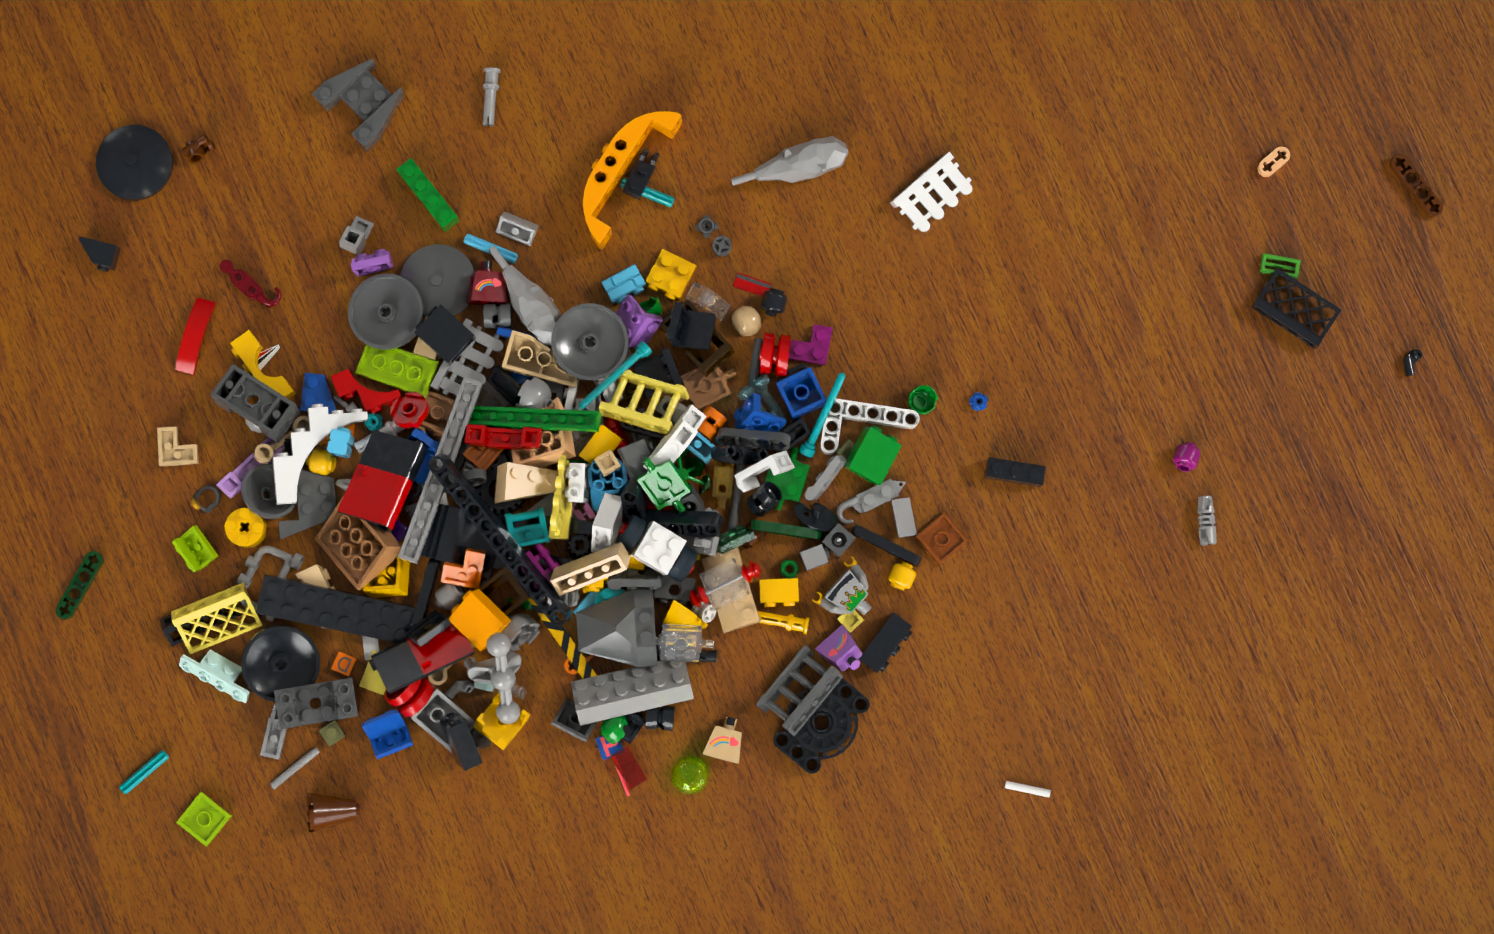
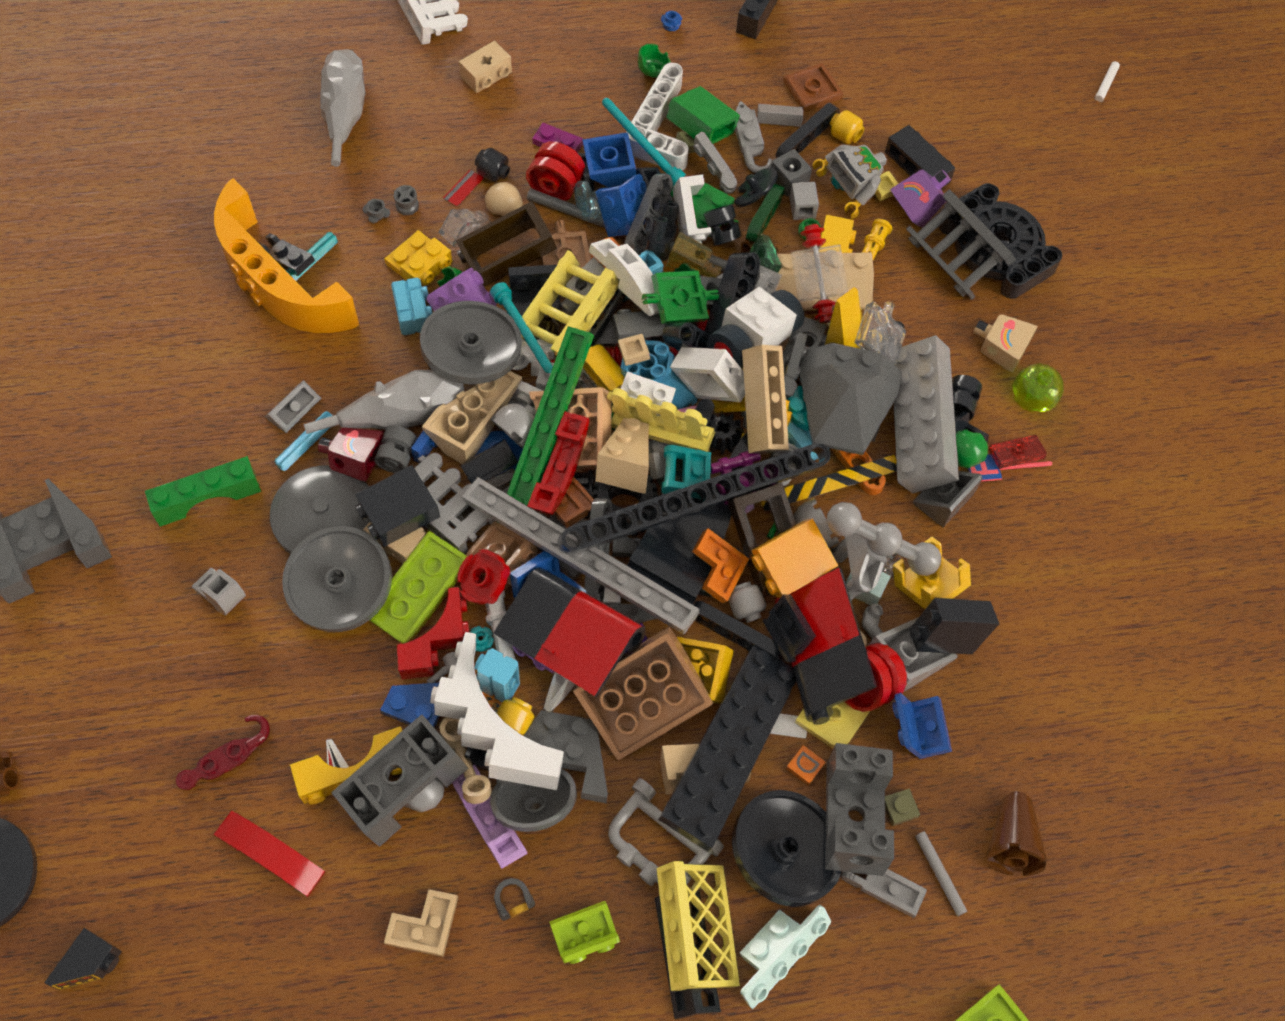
camera: 75 degrees left, 20 degrees down
(234, 528) = (583, 833): yellow brick -> none
(373, 263) = (265, 577): medium lavender plate -> none
(490, 87) = (100, 387): light grey pin -> none
(533, 504) = (657, 464): none -> light grey tile
(690, 328) = (494, 234): black bracket -> none
(869, 255) = (485, 66): none -> tan brick

